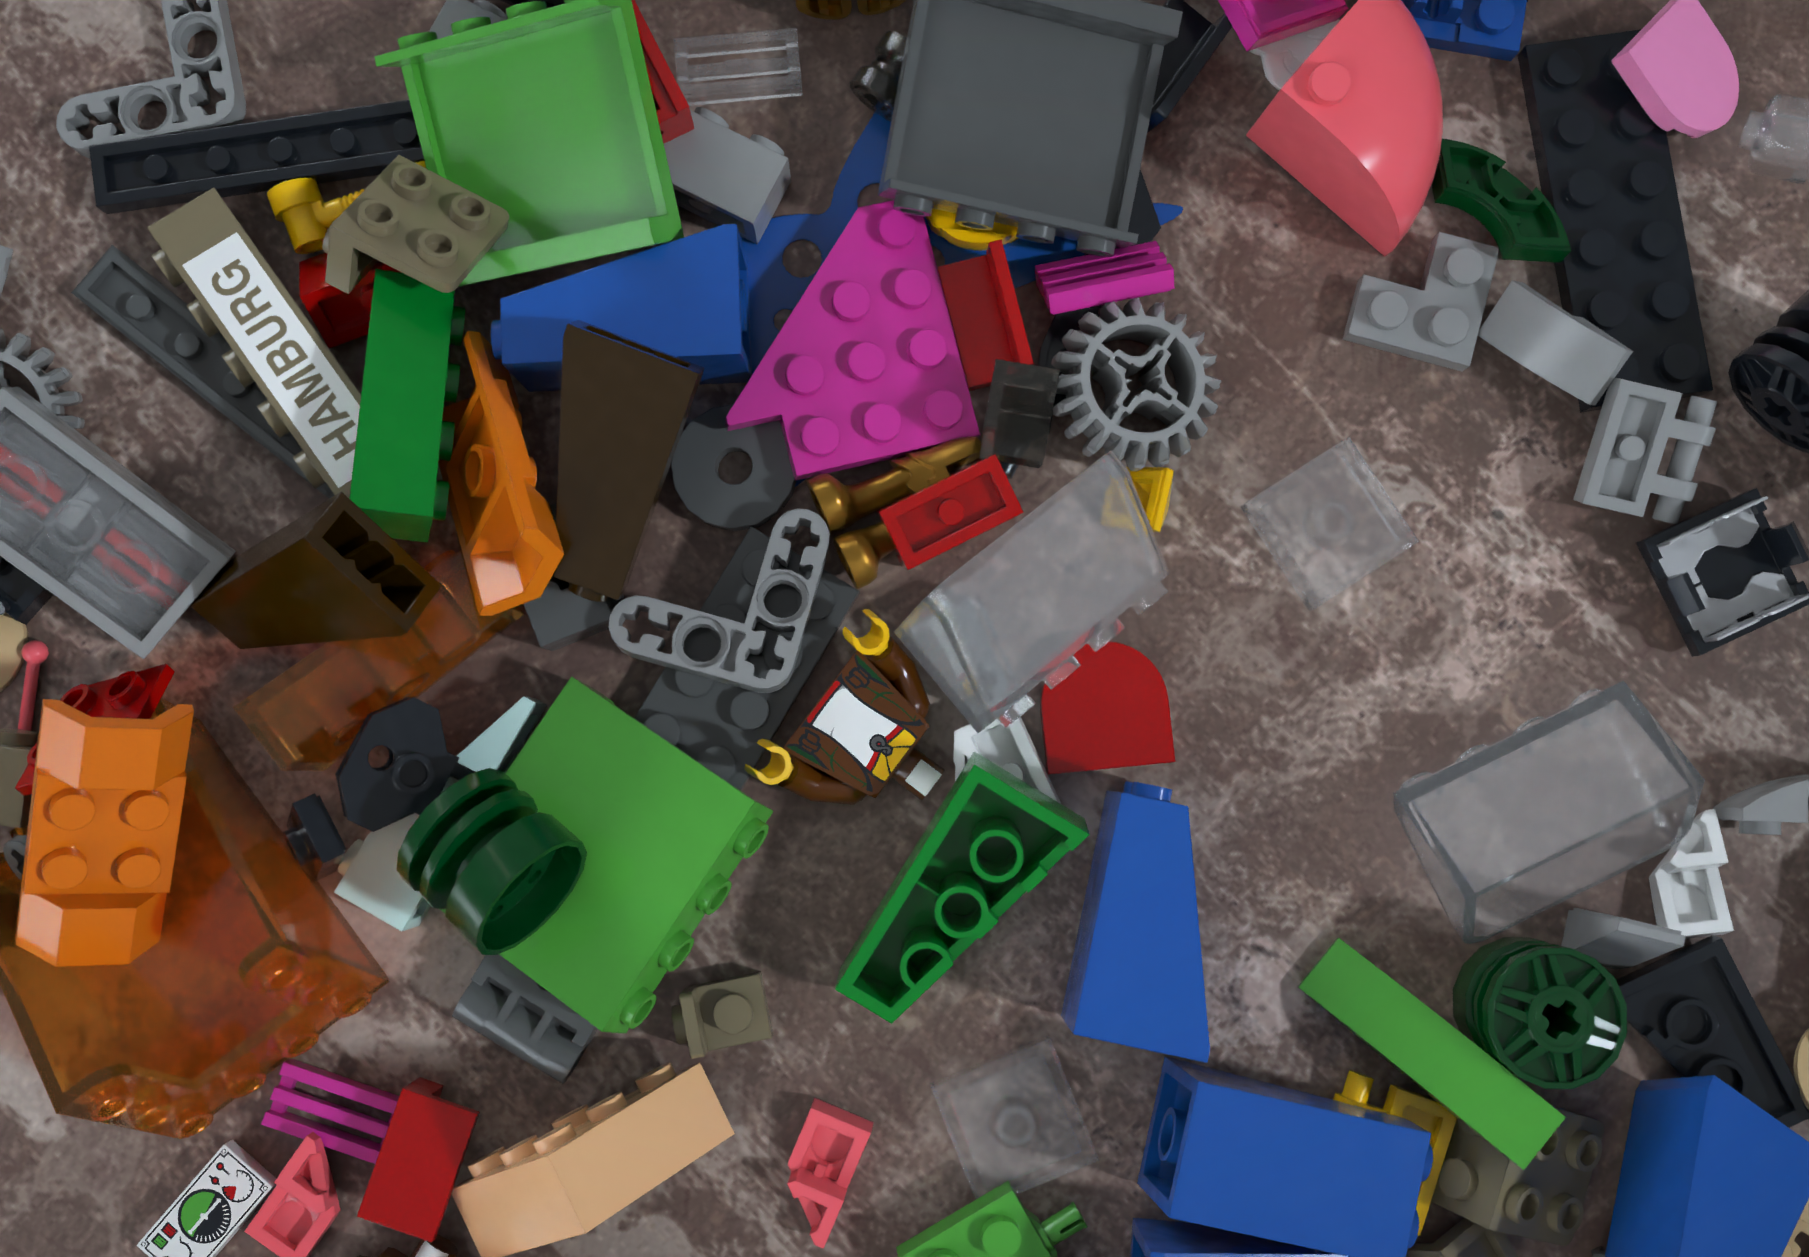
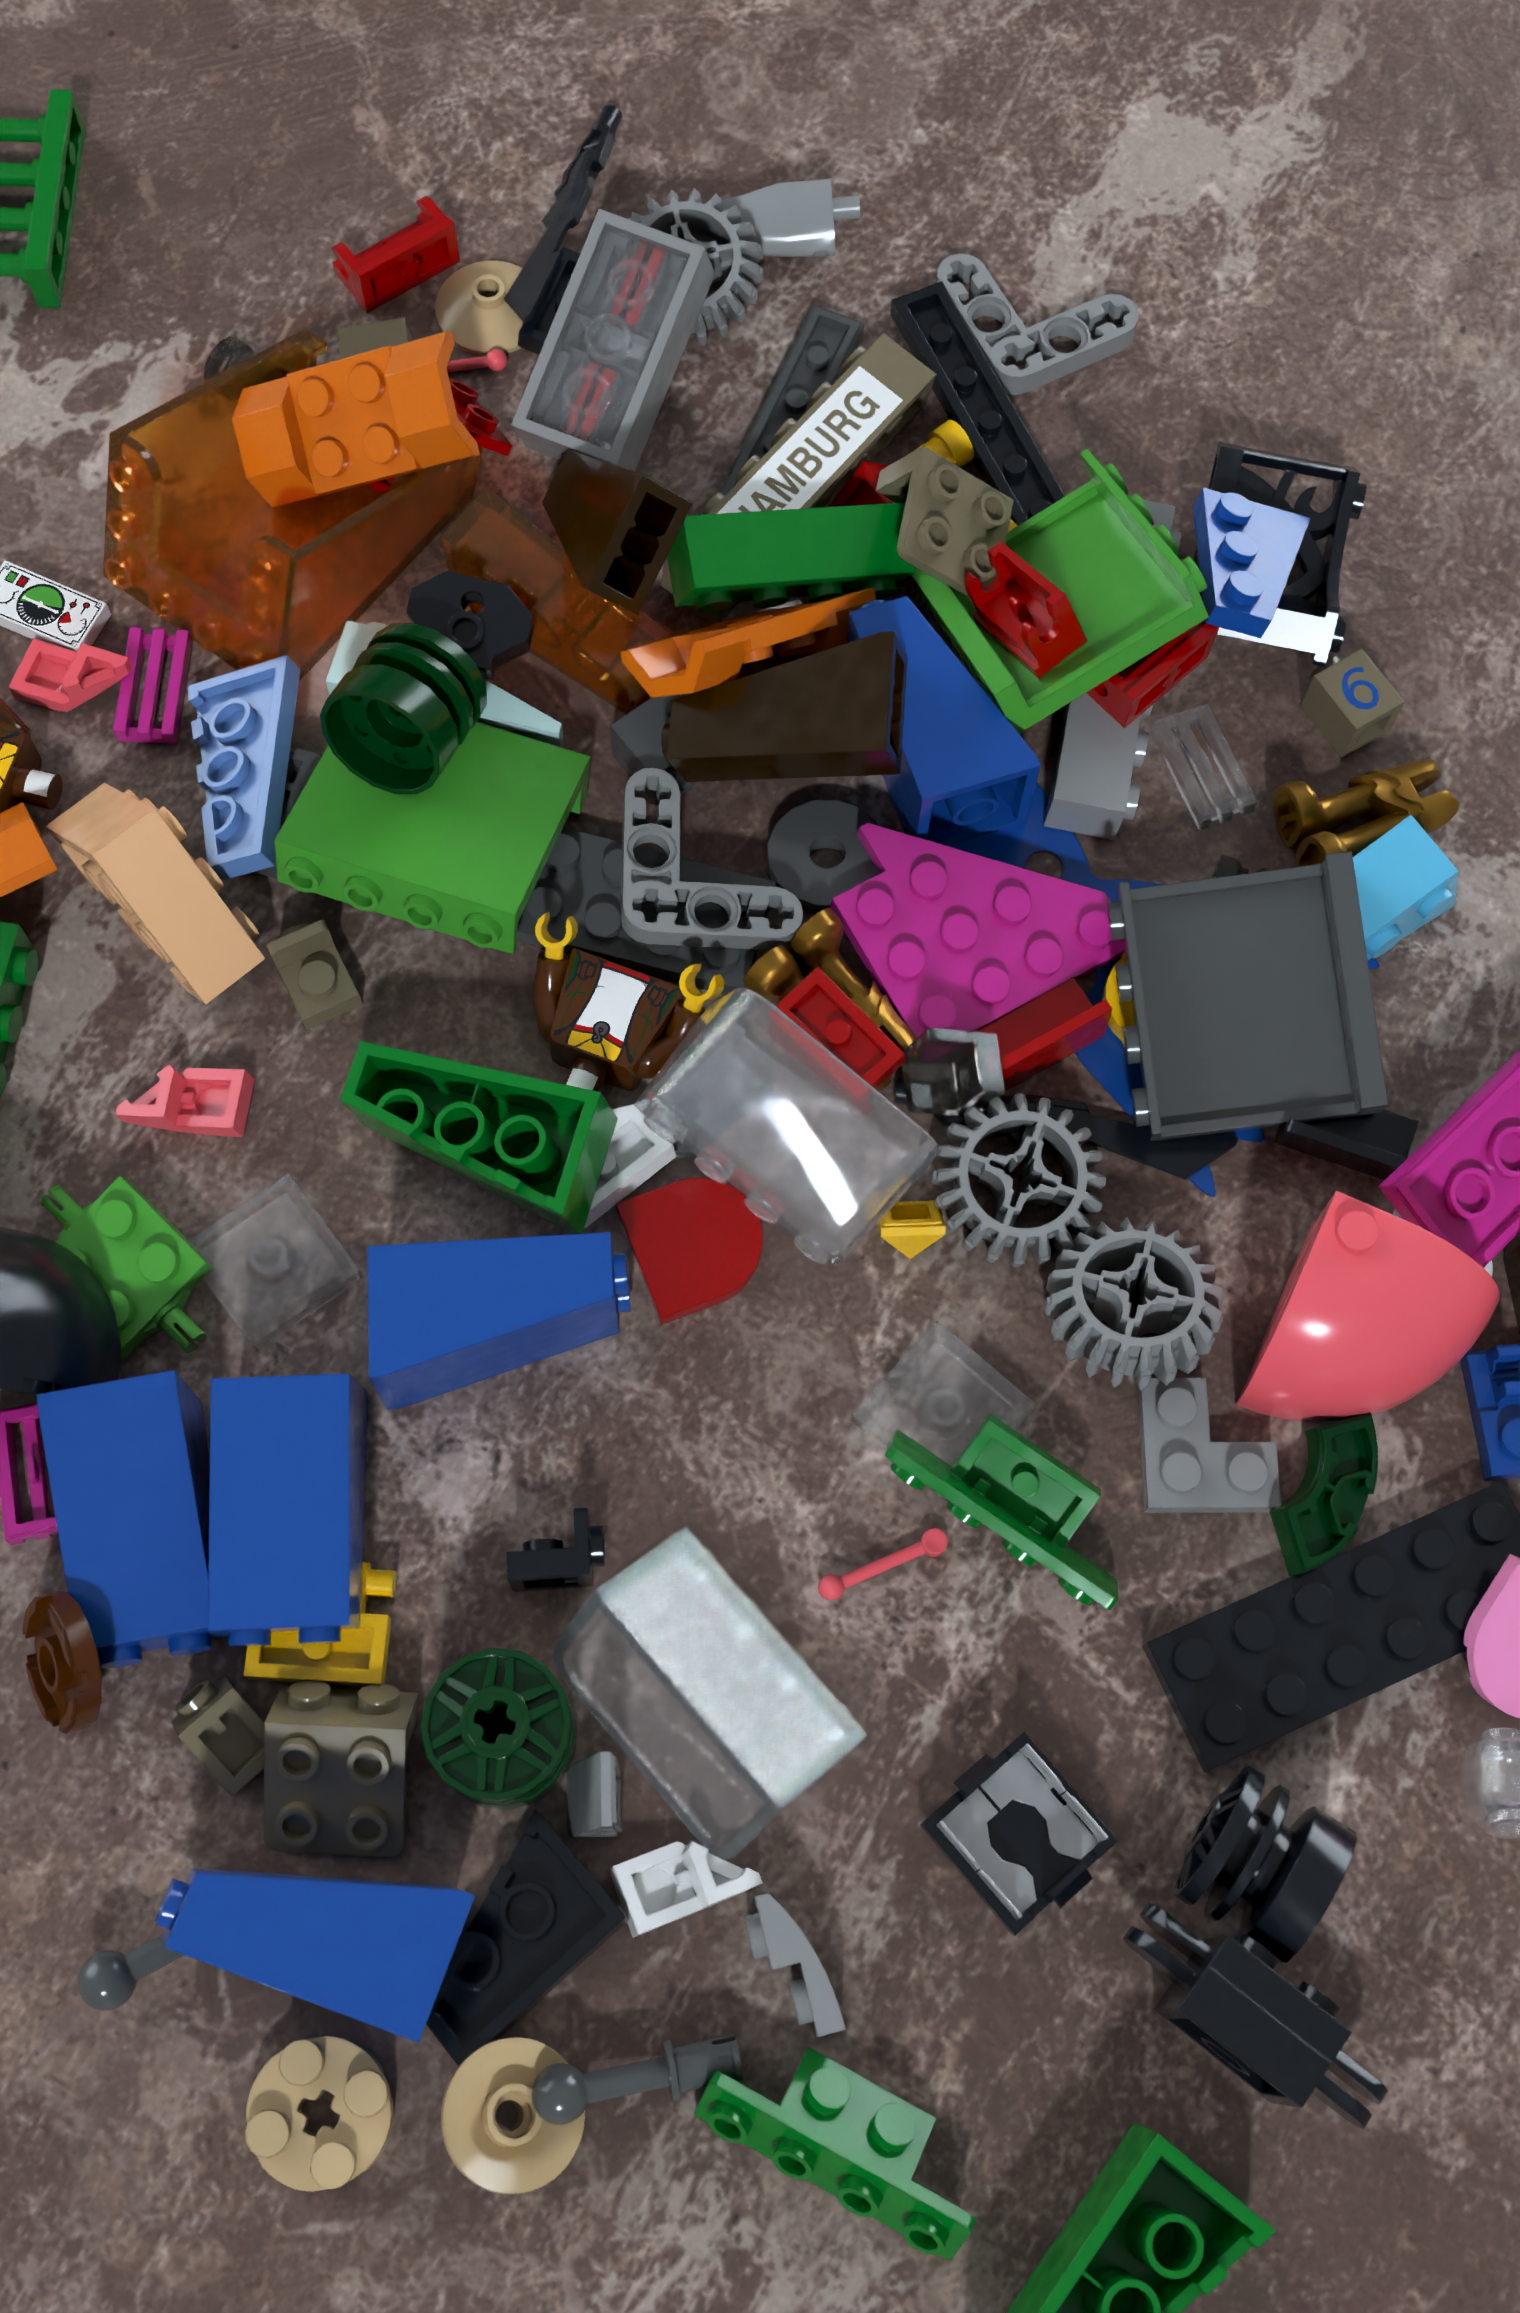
camera: 75 degrees right, 15 degrees down
(313, 837) = (390, 590): black plate -> none
(418, 1161) = (125, 749): red panel -> none
(456, 1032) = (245, 753): none -> medium blue wing
(550, 185) = (1024, 612): none -> red hinge
(1099, 279) = (1113, 1125): dark pink tile -> none
(1305, 330) = (1087, 1291): none -> light grey gear
(1389, 926) = (550, 1566): none -> black bracket
(1432, 1053) = (429, 1631): bright green slope -> none
(1442, 485) = (1018, 1495): none -> green bracket
(1444, 570) = (932, 1544): none -> coral hinge
(1554, 343) = (1195, 1577): light grey slope -> none
(1630, 446) = (1118, 1686): light grey plate -> none

